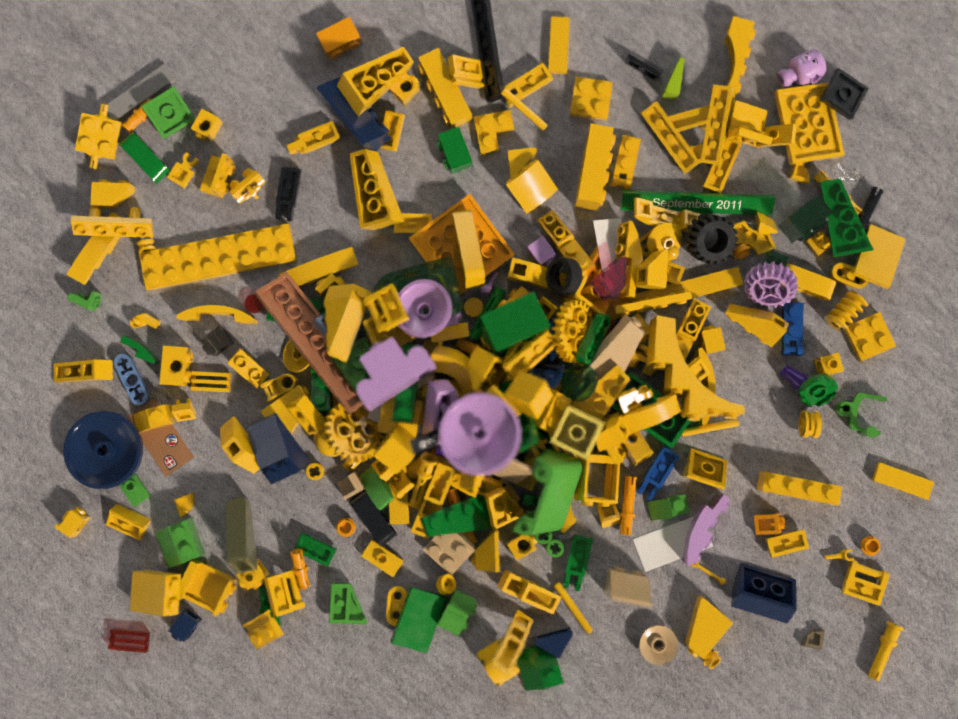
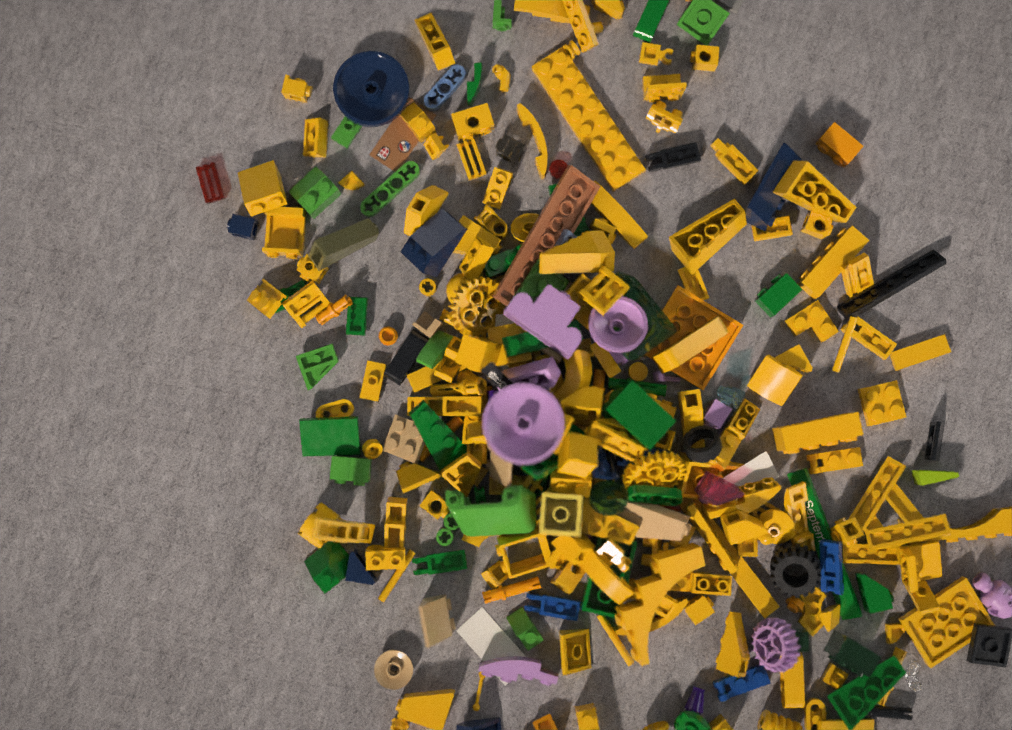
camera: 75 degrees right, 0 degrees up
(209, 469) = (392, 191): none -> bright green beam
(530, 232) = (730, 396): none -> clear light blue bracket
(553, 612) = (384, 558): none -> yellow plate
(694, 179) = (846, 531): none -> yellow brick
(720, 205) = (831, 566): none -> blue plate
(760, 178) = (873, 595): none -> green slope

